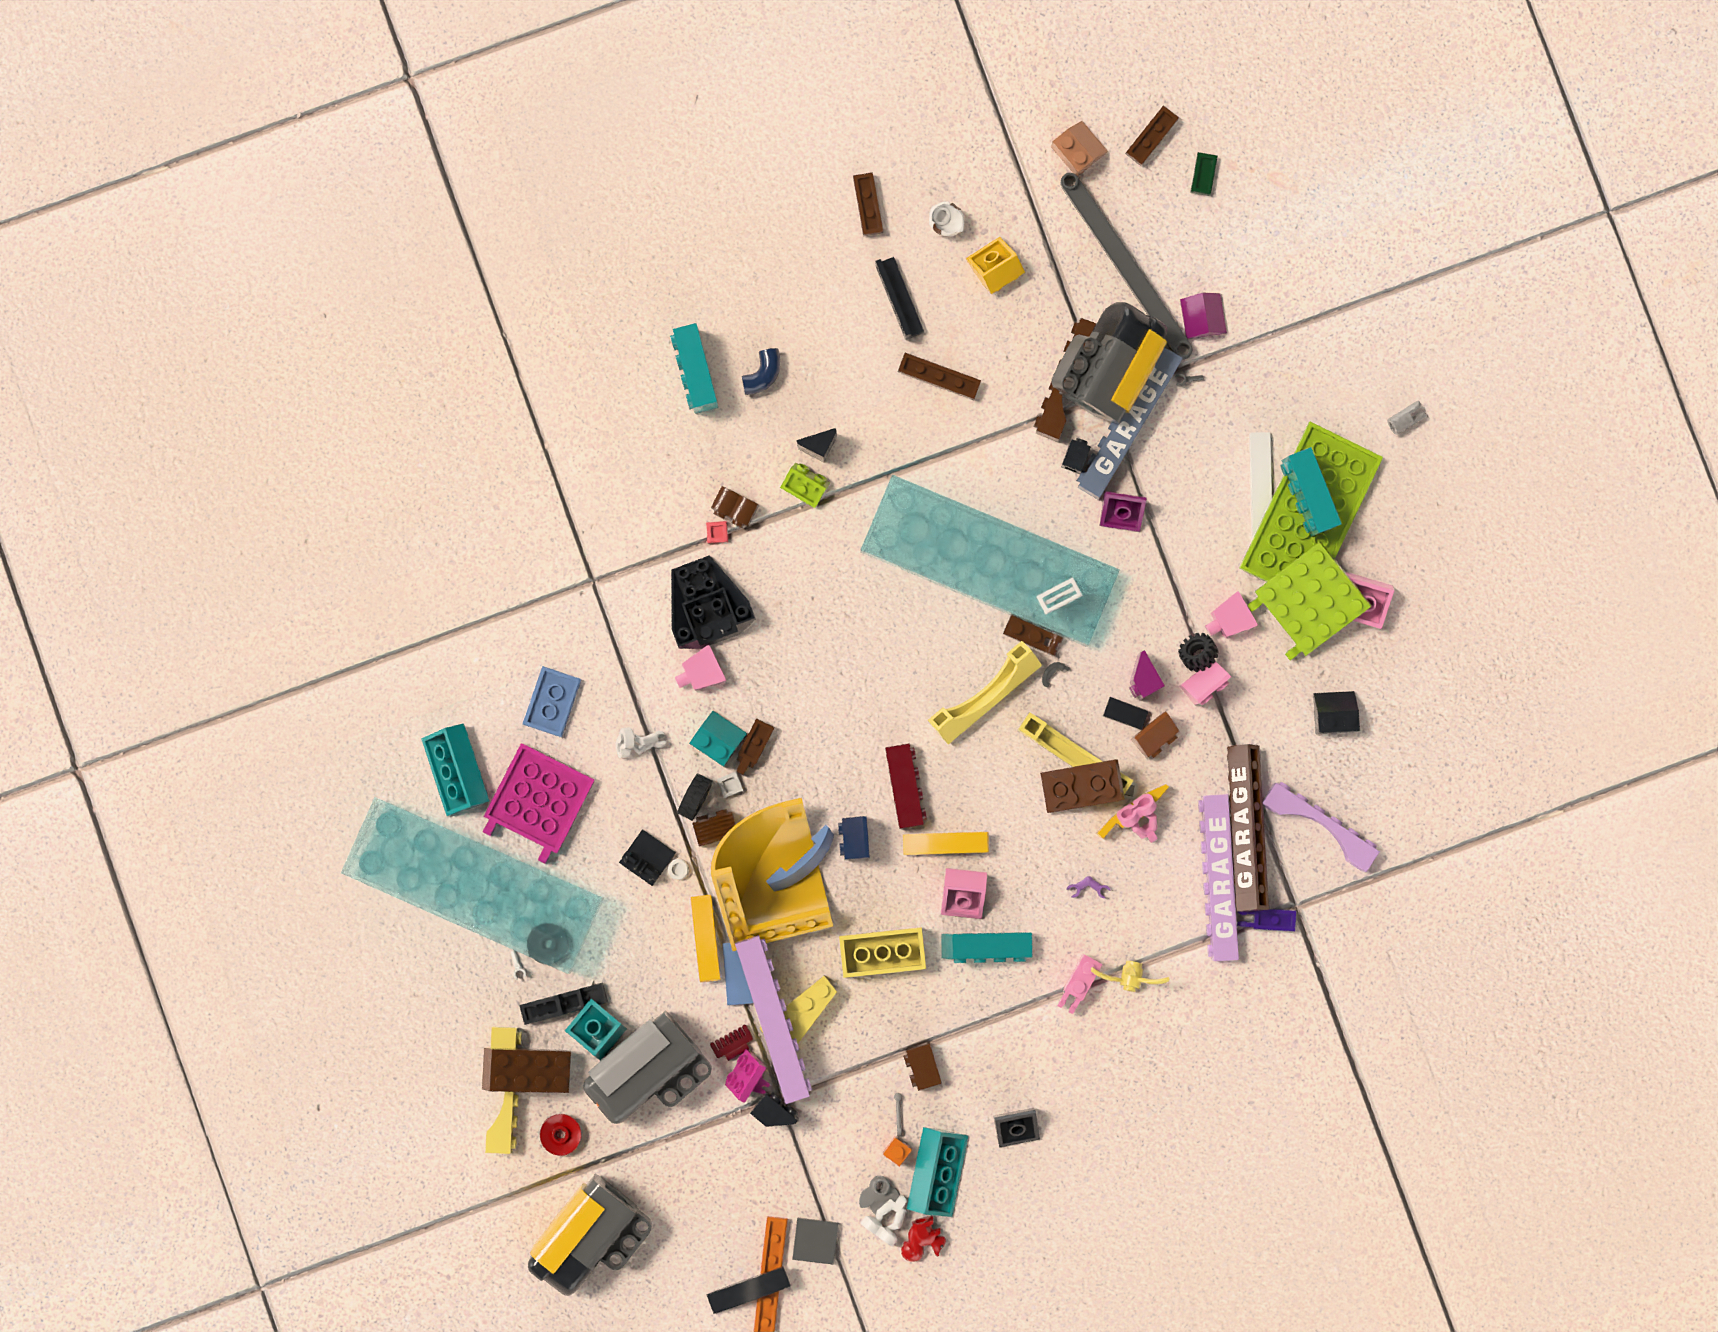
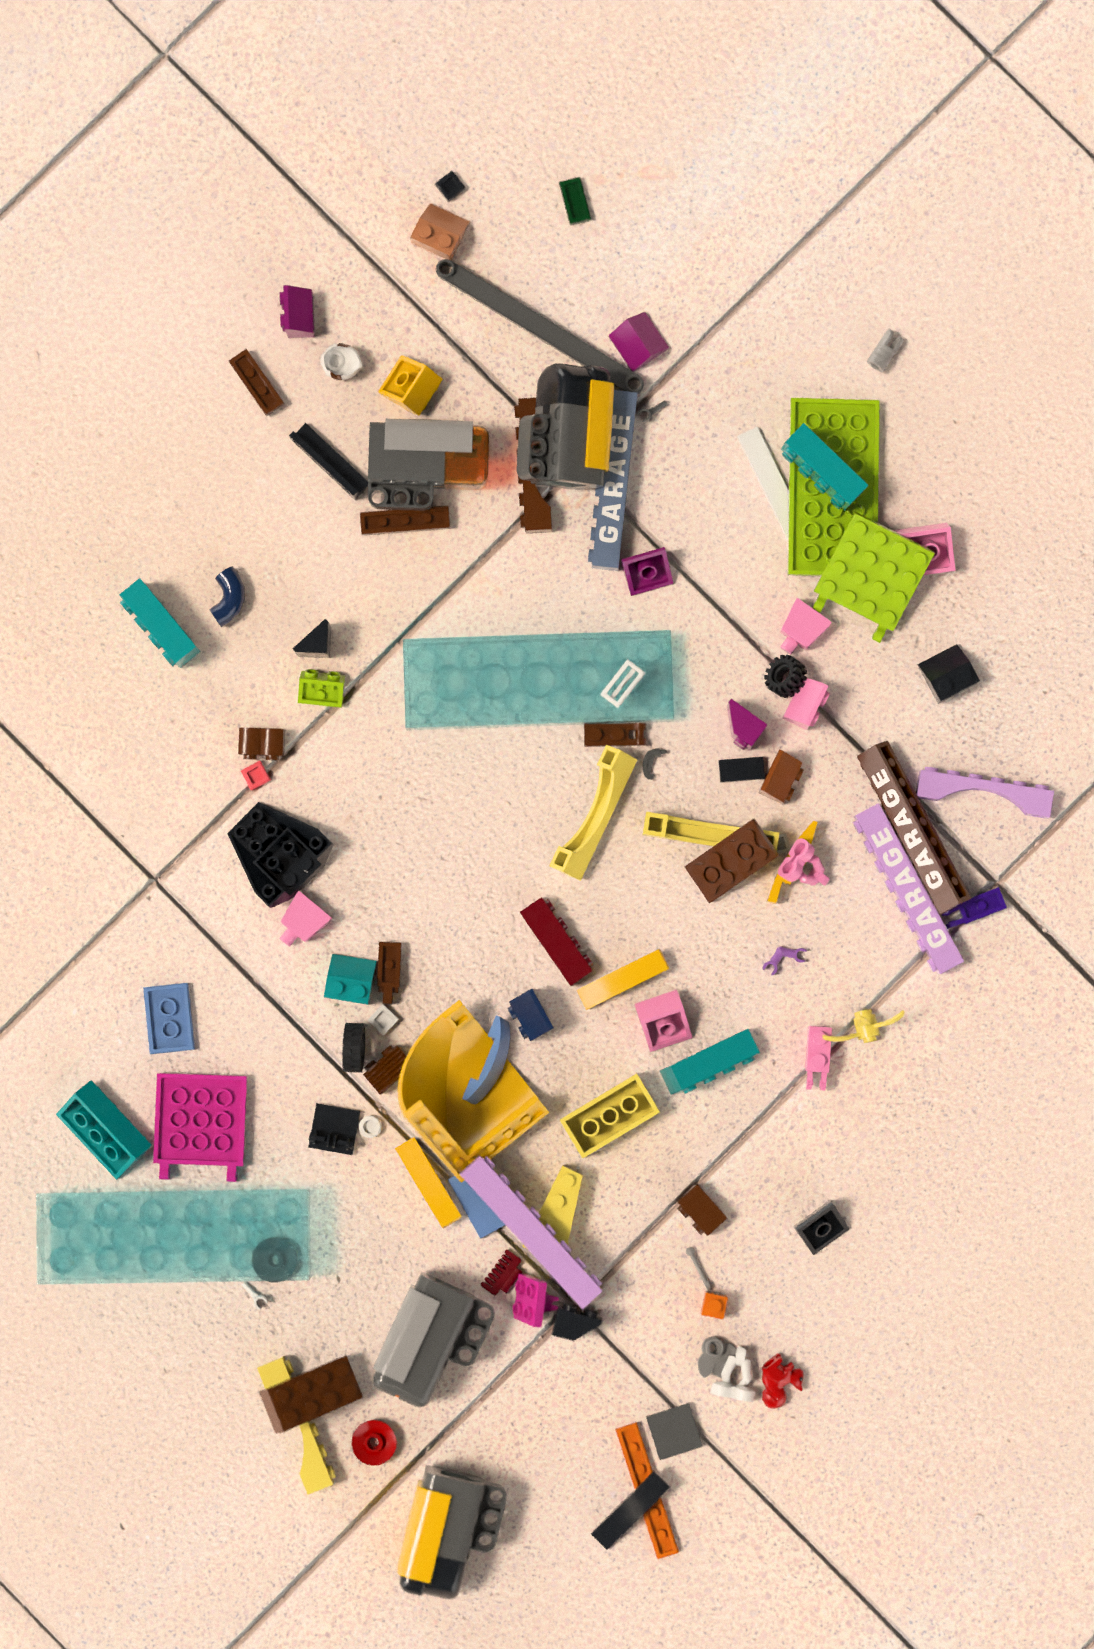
camera: 15 degrees left, 0 degrees up
(562, 1003) = (317, 1311): black slope -> none
(595, 1029) = (361, 1322): teal slope -> none
(627, 739) = (260, 1020): white piece -> none
(930, 161) = (298, 312): none -> magenta slope
(937, 1172) = (763, 1308): teal slope -> none
(979, 330) = (425, 455): none -> piece
(1076, 455) = (576, 537): black slope -> none
(1105, 114) = (450, 186): none -> black tile
(1152, 135) = (506, 186): reddish brown plate -> none

